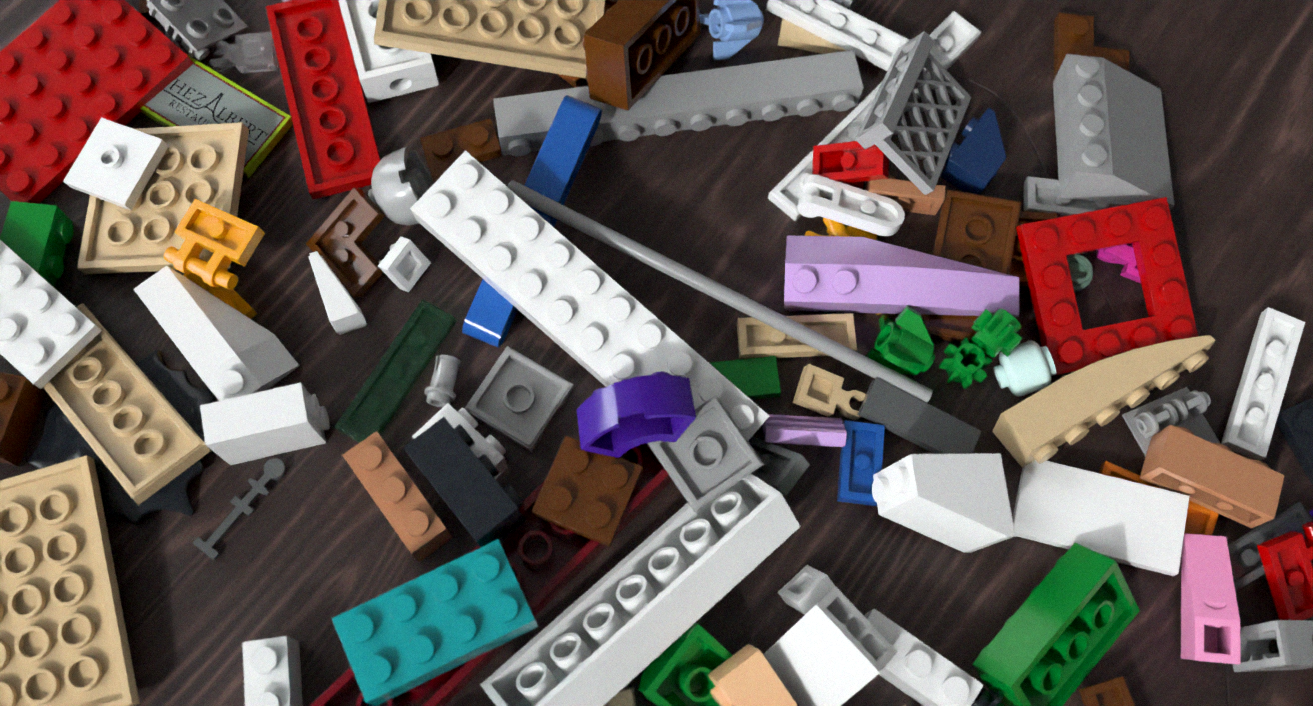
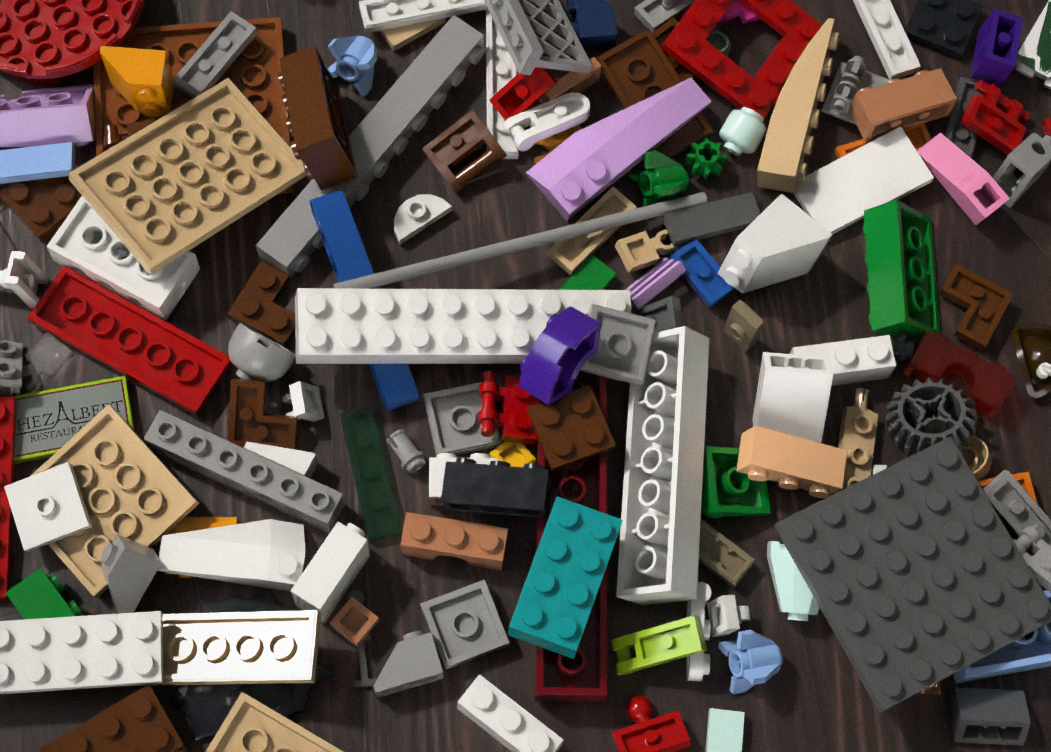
camera: 45 degrees left, 0 degrees up
(110, 269) = (128, 571): none -> light grey slope
(218, 232) = (179, 483): light orange plate -> none
(245, 485) = (354, 621): none -> nougat plate
(252, 568) = (409, 665): none -> light grey slope
(293, 278) = (245, 471): none -> light grey brick
(331, 575) = (464, 624): none -> light grey plate
(526, 469) = (513, 453): none -> yellow tile
(551, 435) = (514, 418): none -> red plate
(658, 192) = (418, 214): none -> white plate
(750, 162) = (457, 144): none -> reddish brown plate
(806, 589) = (743, 374): white tile -> none
(847, 544) = (743, 325): none -> dark tan plate
(996, 332) = (710, 123): green gear -> none

